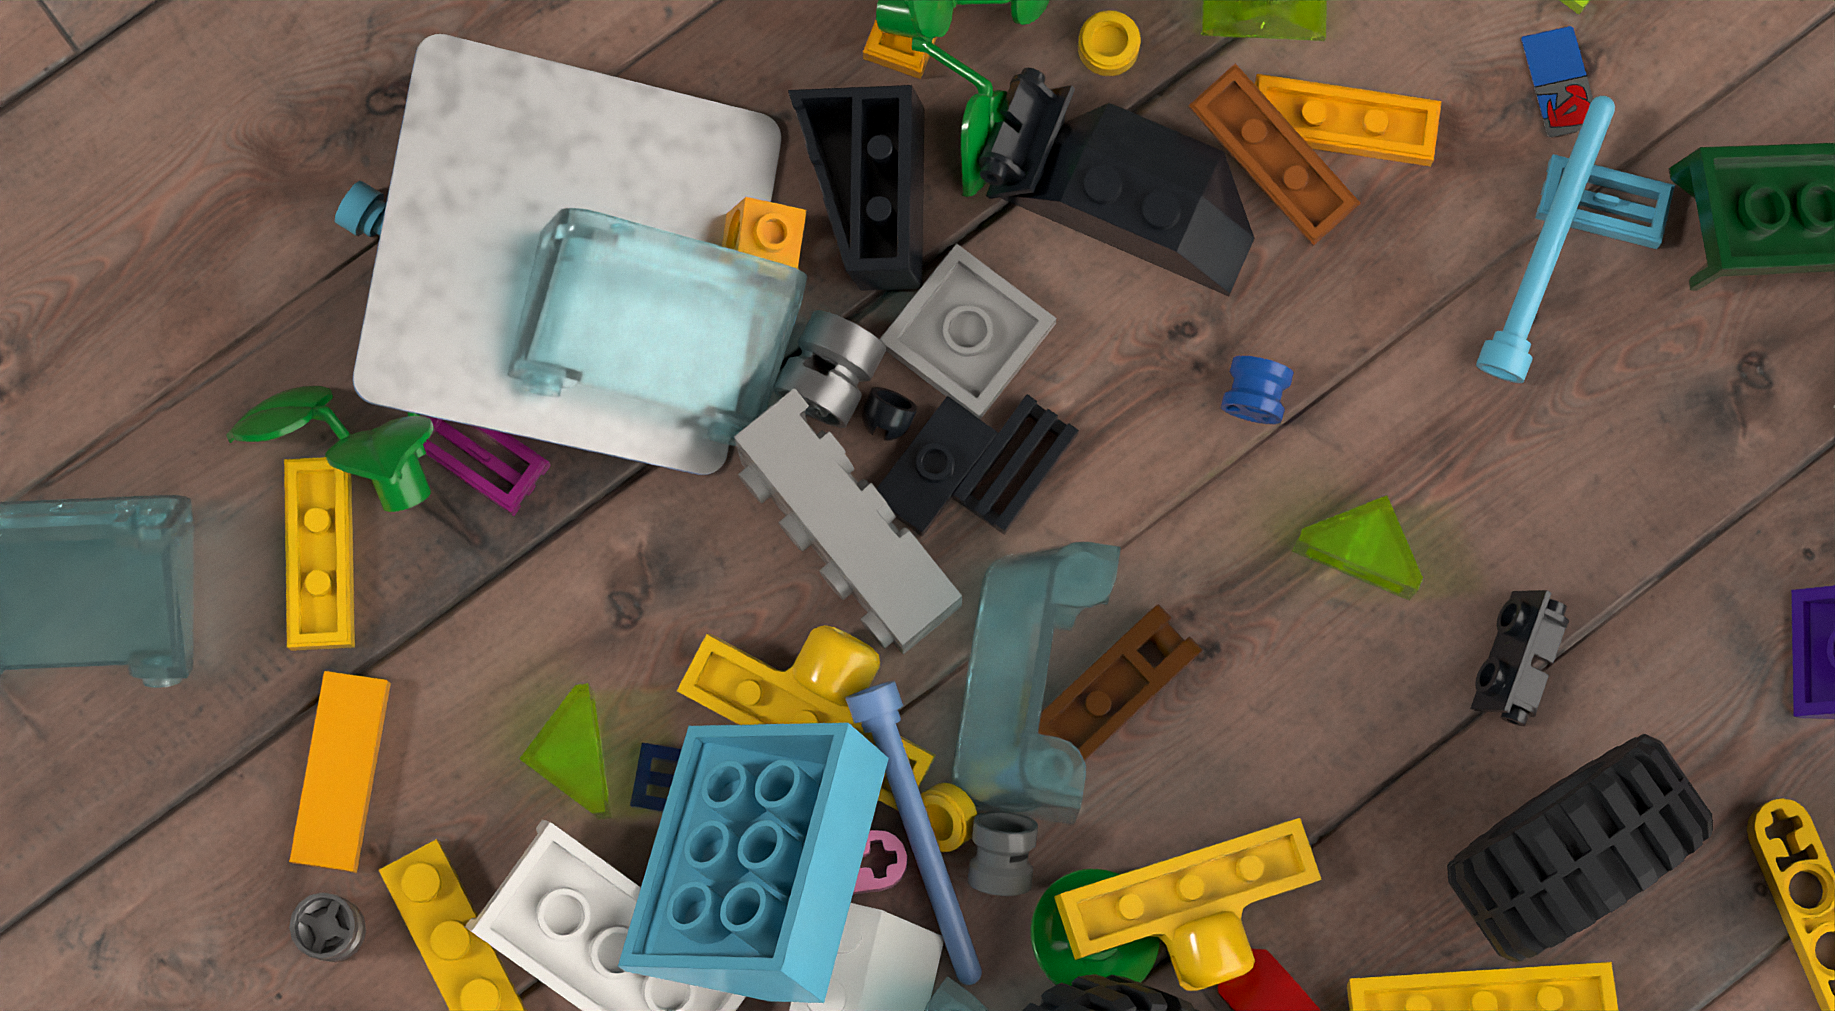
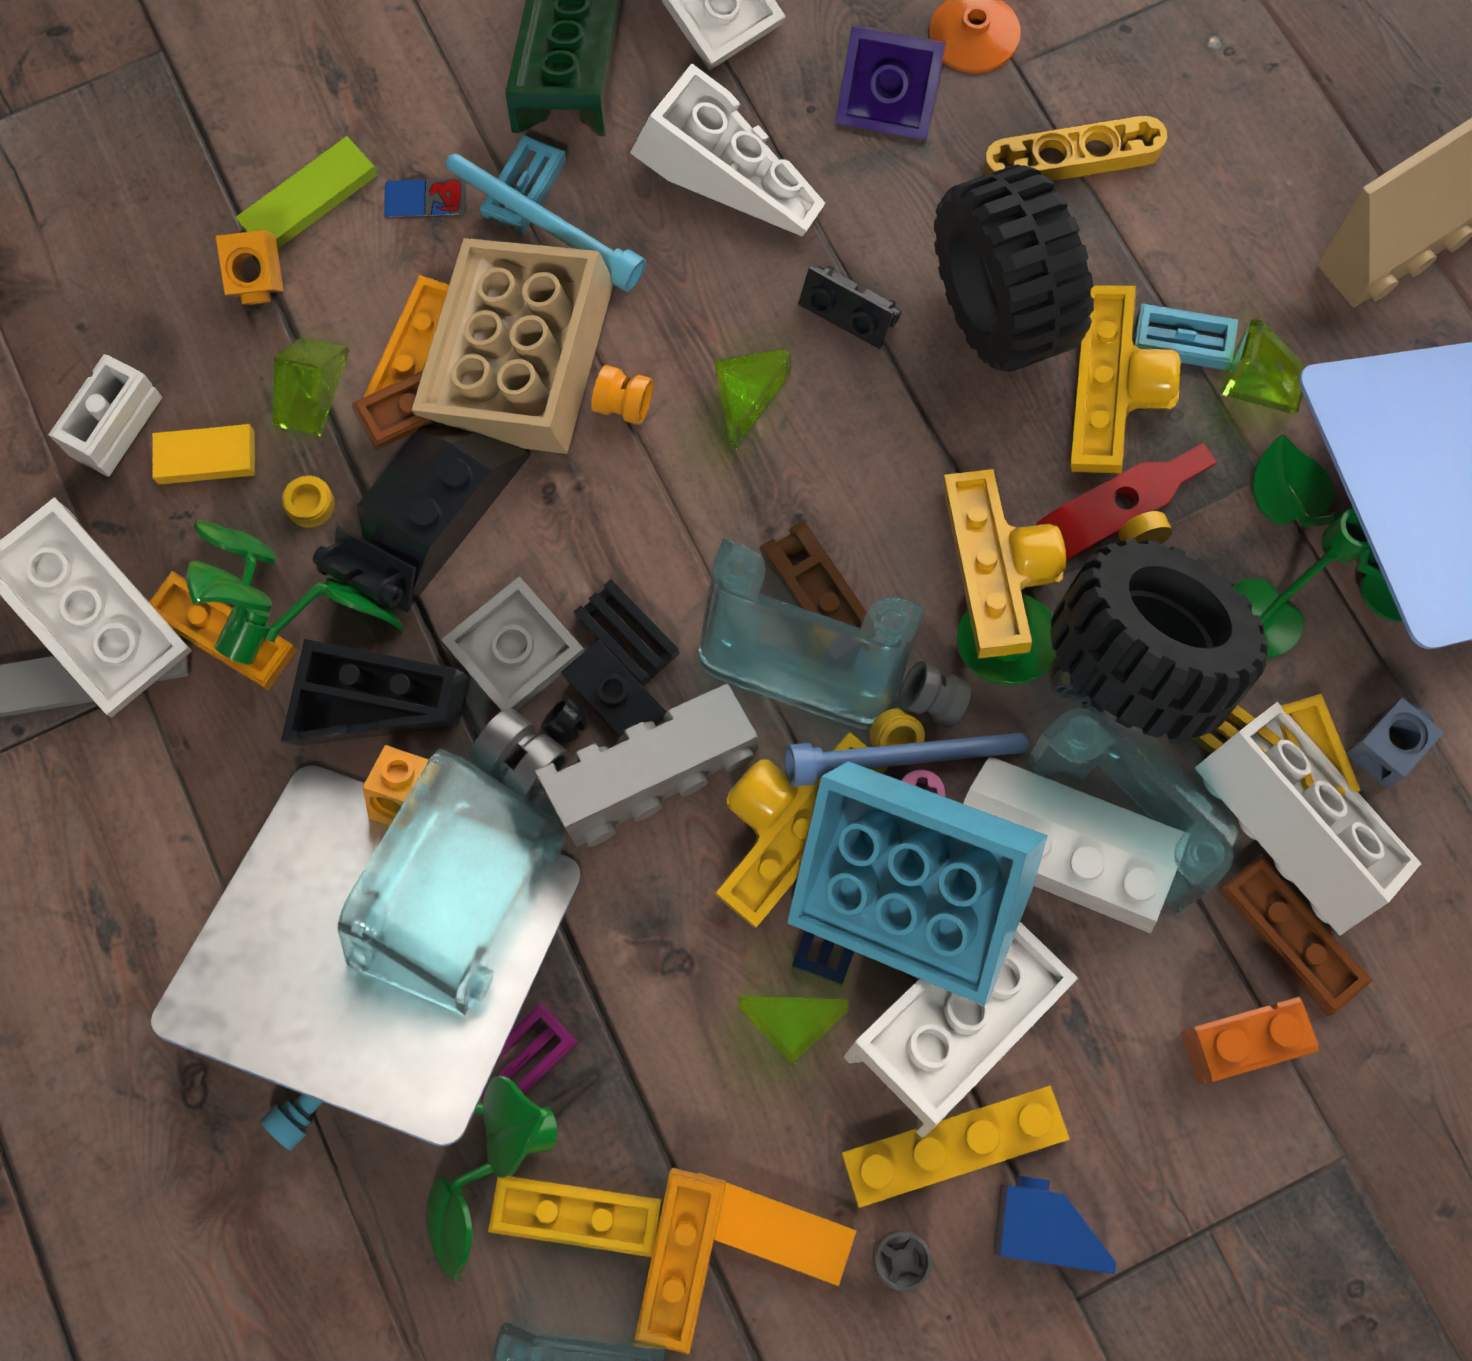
camera: 75 degrees left, 5 degrees down
(288, 678) = (680, 1260): none -> light orange tile
(1257, 389) = (609, 443): blue wheel -> none
(1326, 391) = (622, 394): none -> light orange wheel
(1364, 242) = (516, 342): none -> tan slope
(1699, 444) = (712, 150): none -> white wedge

